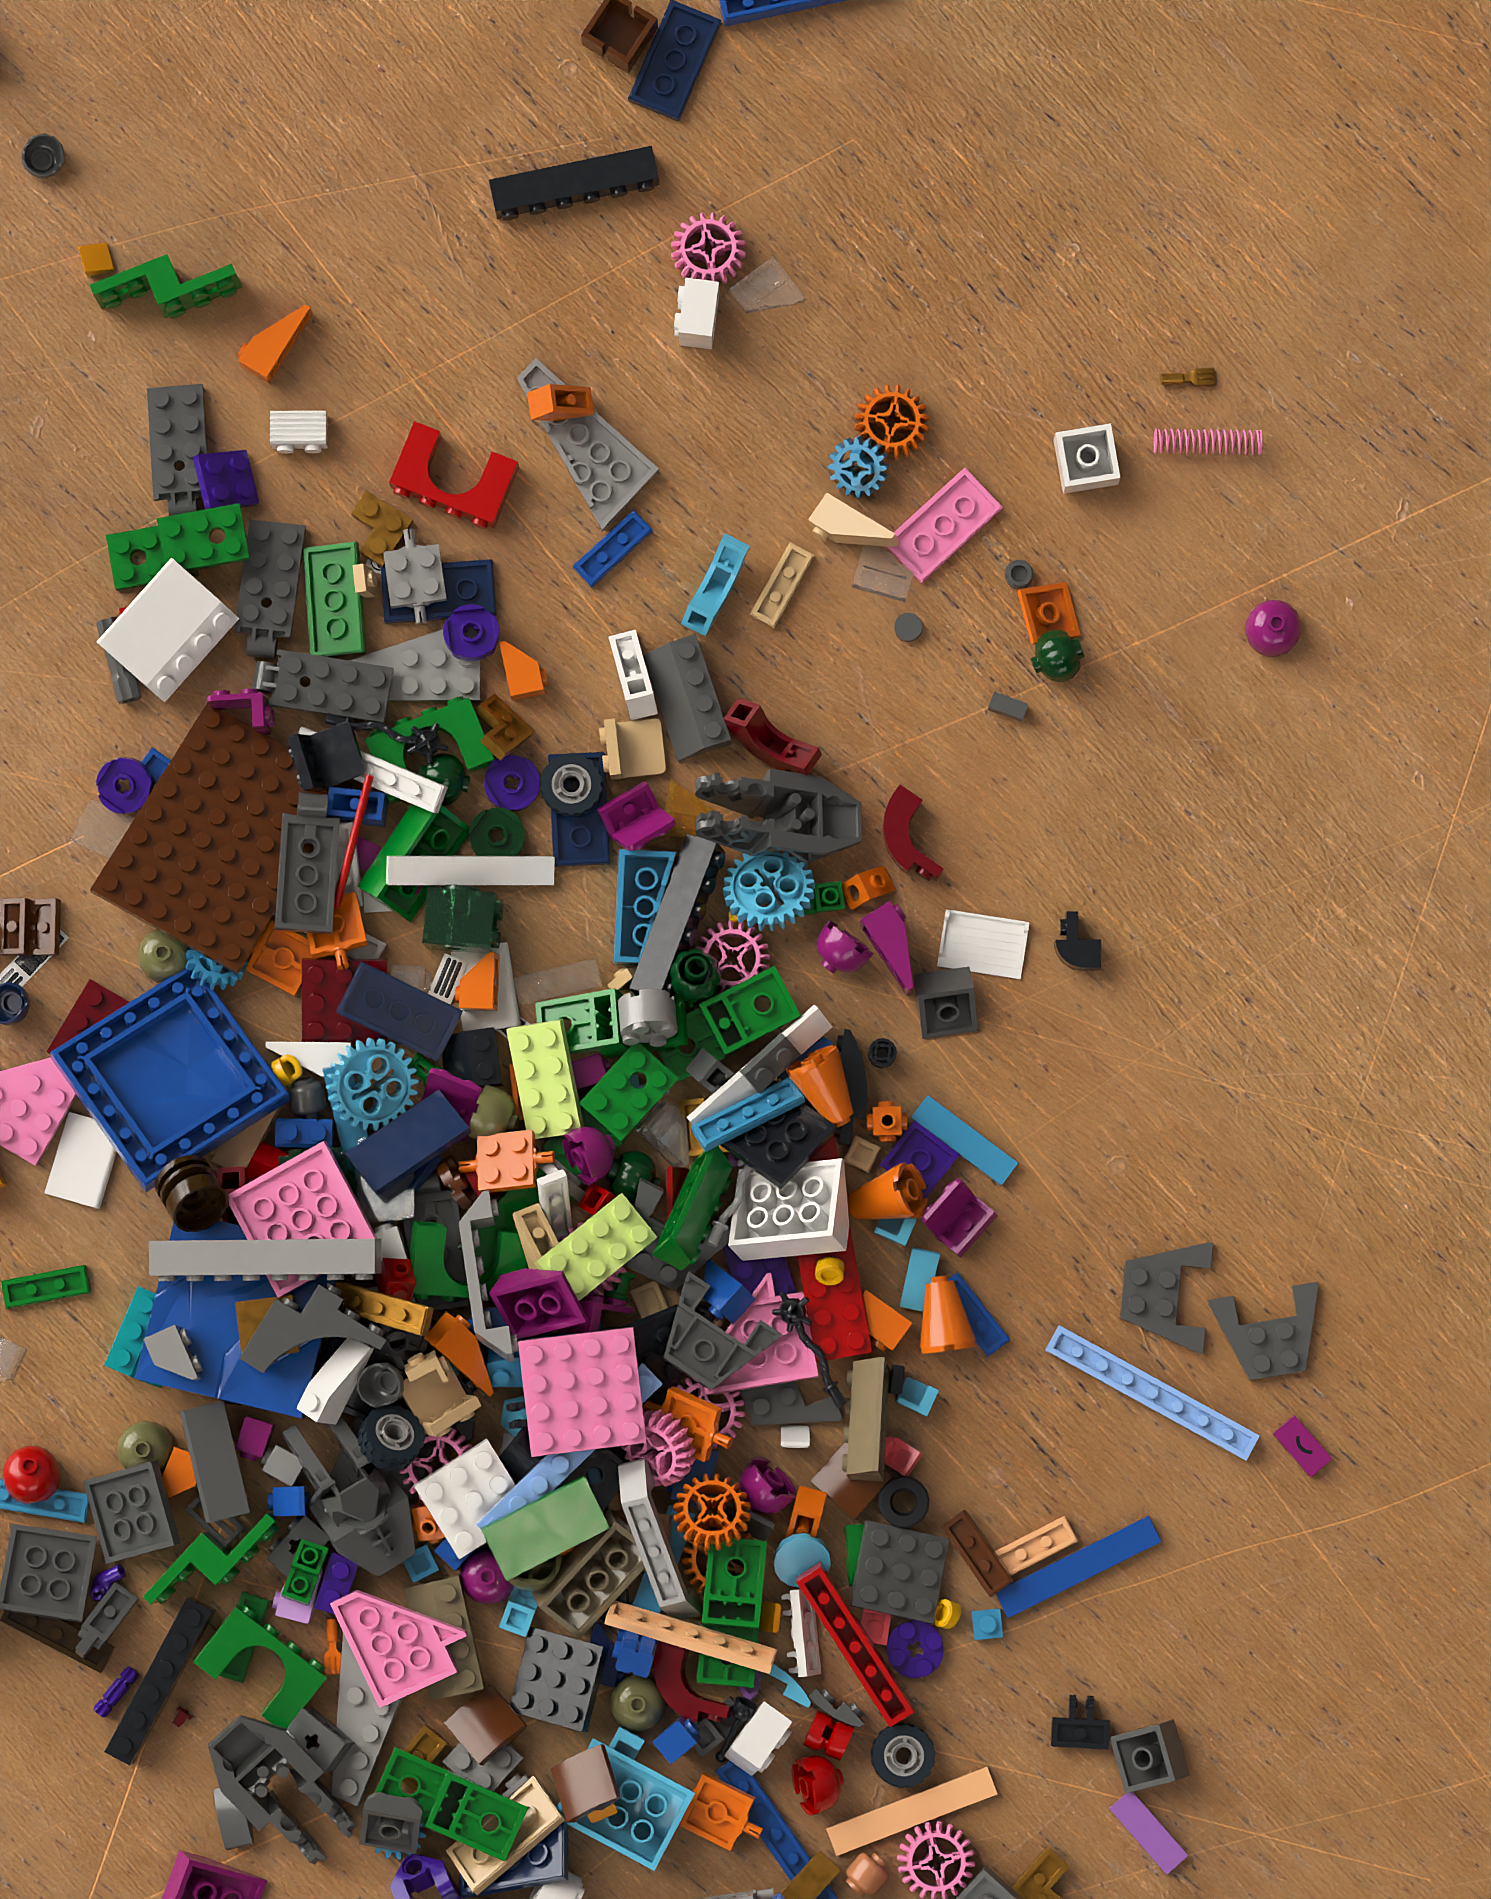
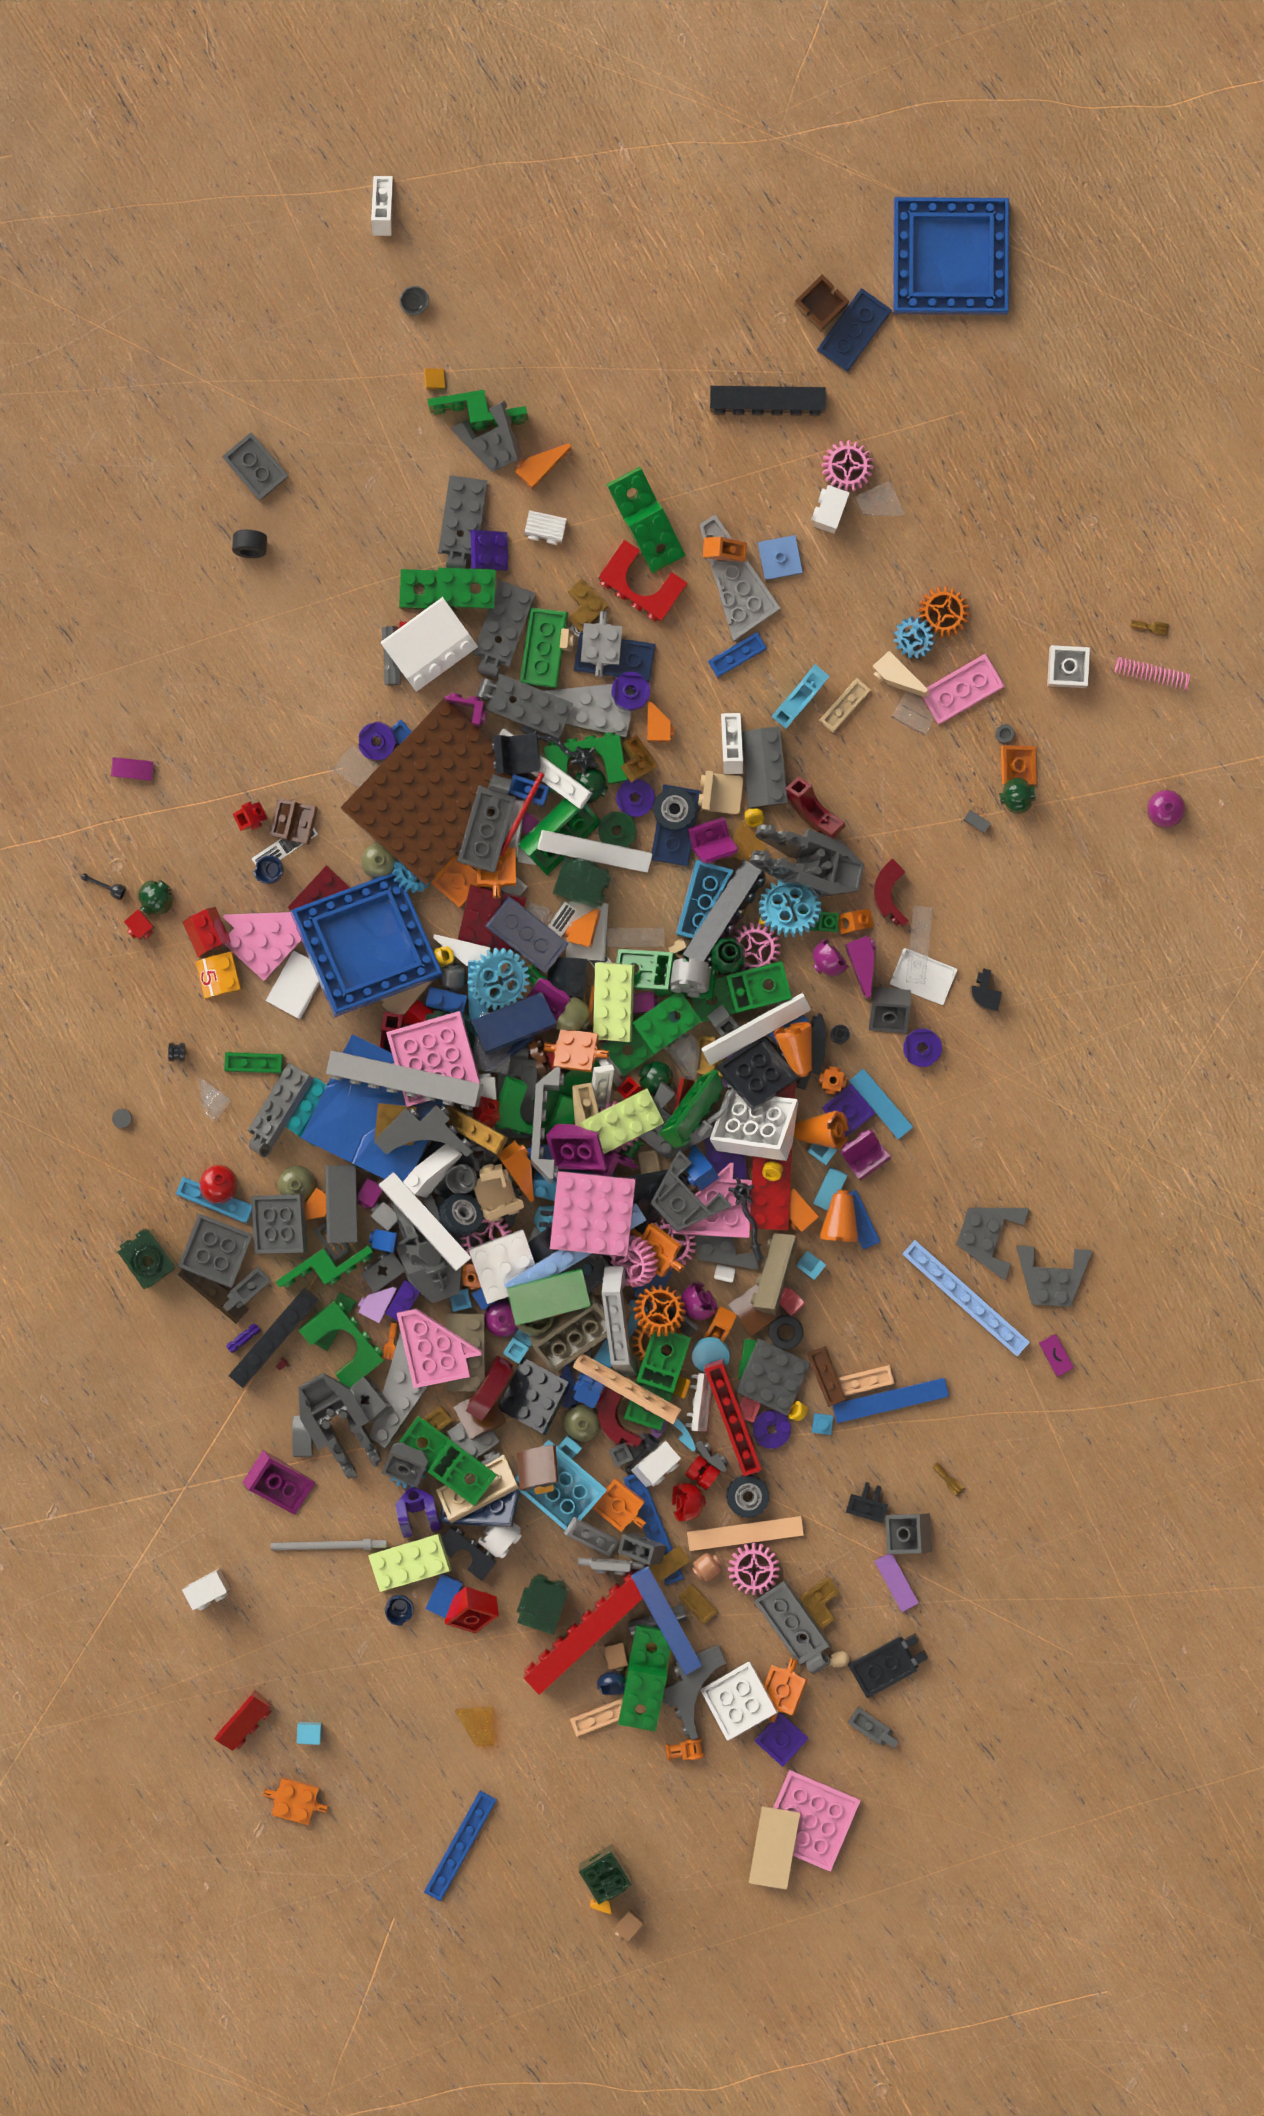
camera: 10 degrees right, 5 degrees up
(94, 1345) = (278, 1109): none -> dark grey hinge
(104, 1581) = (251, 1264): dark purple arm -> none
(171, 1352) = (329, 1127): light grey slope -> none
(191, 1193) = (365, 1025): dark brown wheel -> none
(203, 331) = (496, 446): none -> dark grey wing
(304, 1572) = (384, 1289): green slope -> none
(340, 1459) = (424, 1221): none -> white tile
(439, 387) = (646, 519): none -> green bracket
(491, 1682) = (490, 1388): none -> dark red arch
(590, 1152) = (632, 1057): magenta cylinder -> none
(642, 399) = (780, 557): none -> medium blue plate
(677, 1738) = (603, 1452): blue slope -> none
(688, 771) = (754, 817): none -> yellow tile
(688, 1867) = (591, 1536): none -> light grey tile
(747, 1114) = (742, 1055): dark azure tile -> none
(765, 1868) = (642, 1548): none -> dark grey brick
(770, 1063) = (764, 1025): dark grey plate -> none
(861, 1154) = (811, 1097): tan tile -> none
(896, 1379) = (799, 1251): black tile -> none
(908, 627) = (922, 753): dark grey tile -> none
(966, 900) = (919, 944): none -> clear tile
(991, 1037) = (915, 1056): none -> dark purple plate
(1194, 1667) = (951, 1483): none -> pearl gold piece

